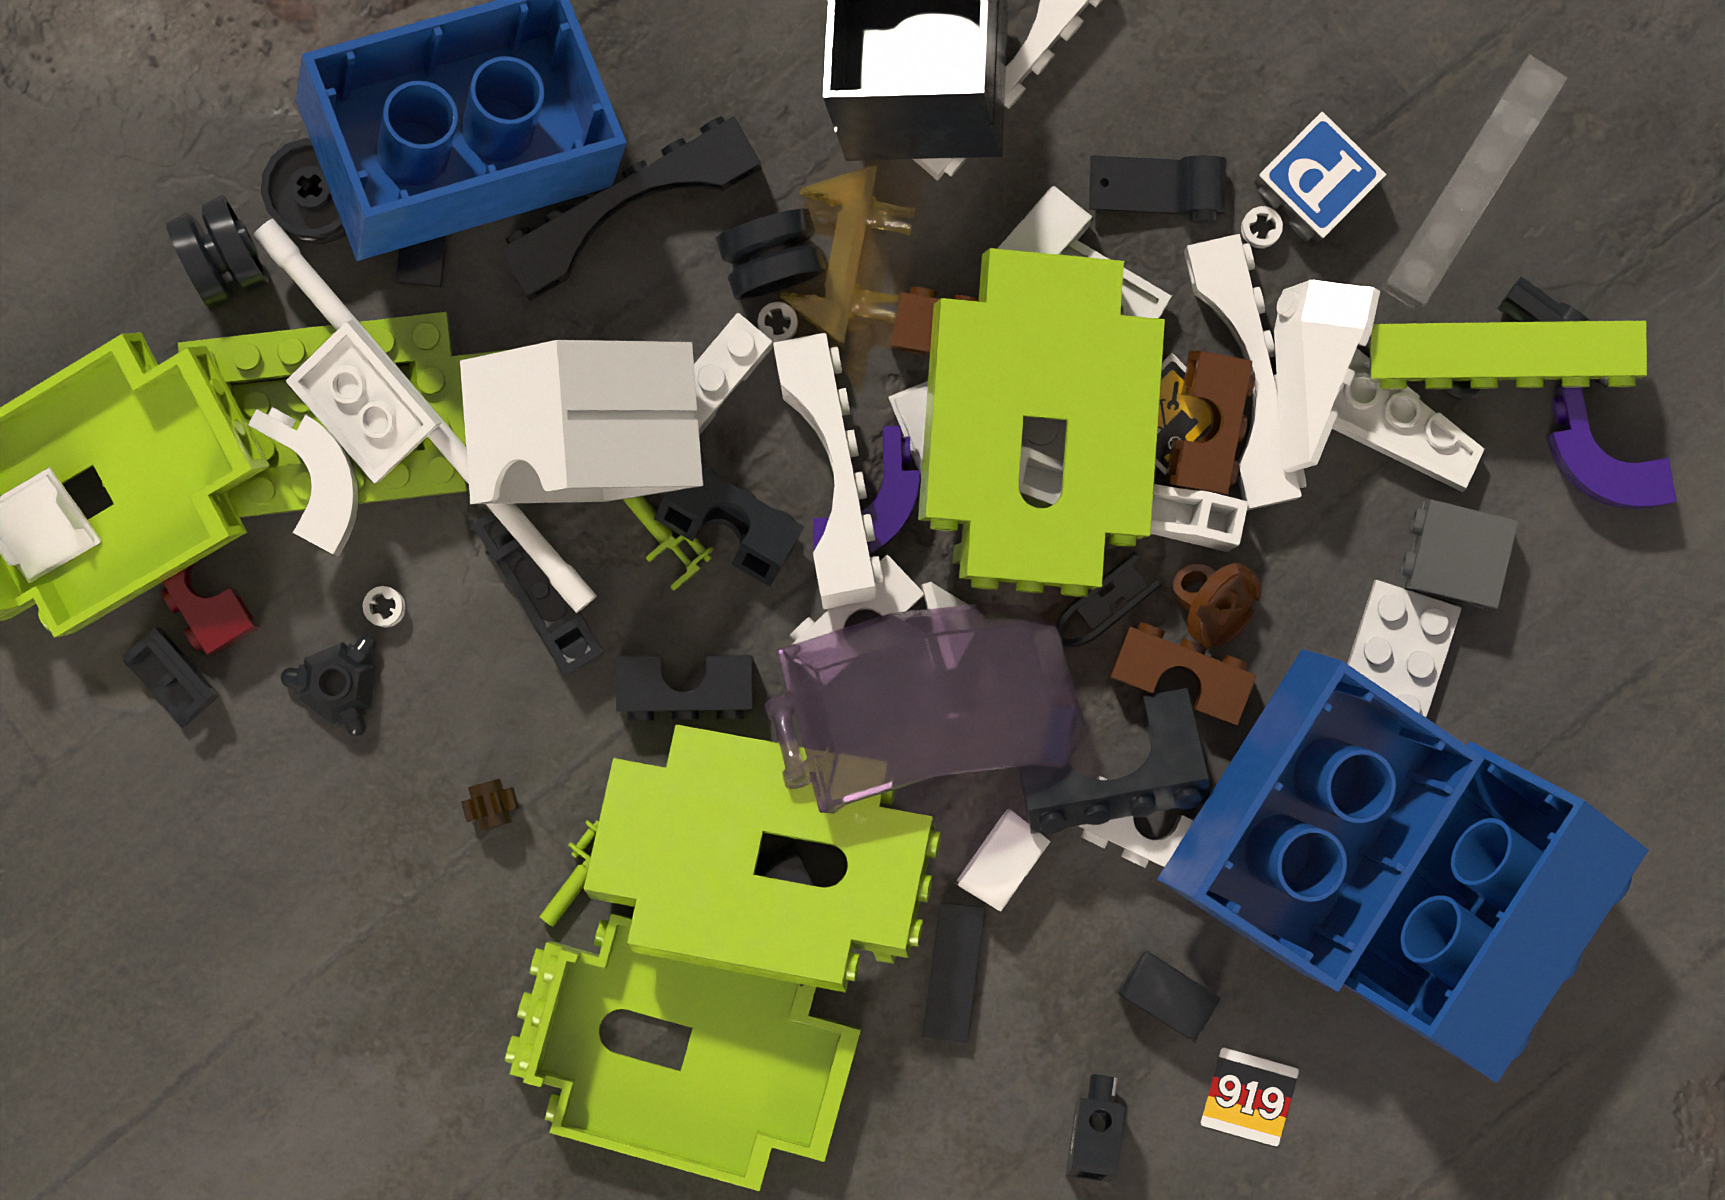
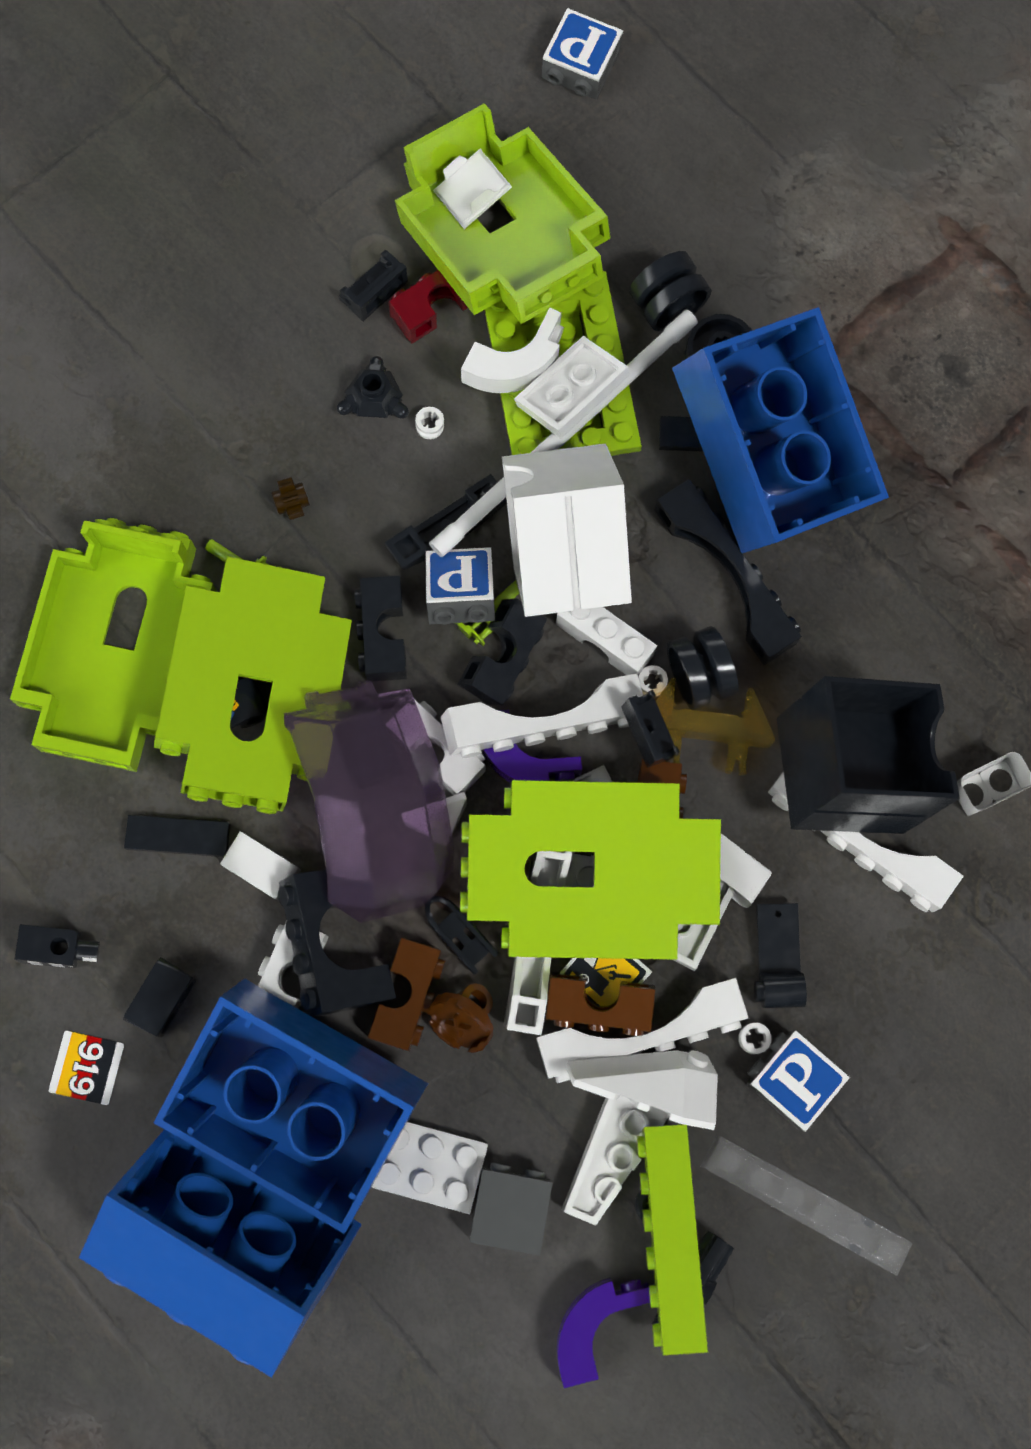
camera: 85 degrees right, 10 degrees down
(636, 574) = (460, 586): none -> piece
(855, 330) = (649, 729): none -> black hinge

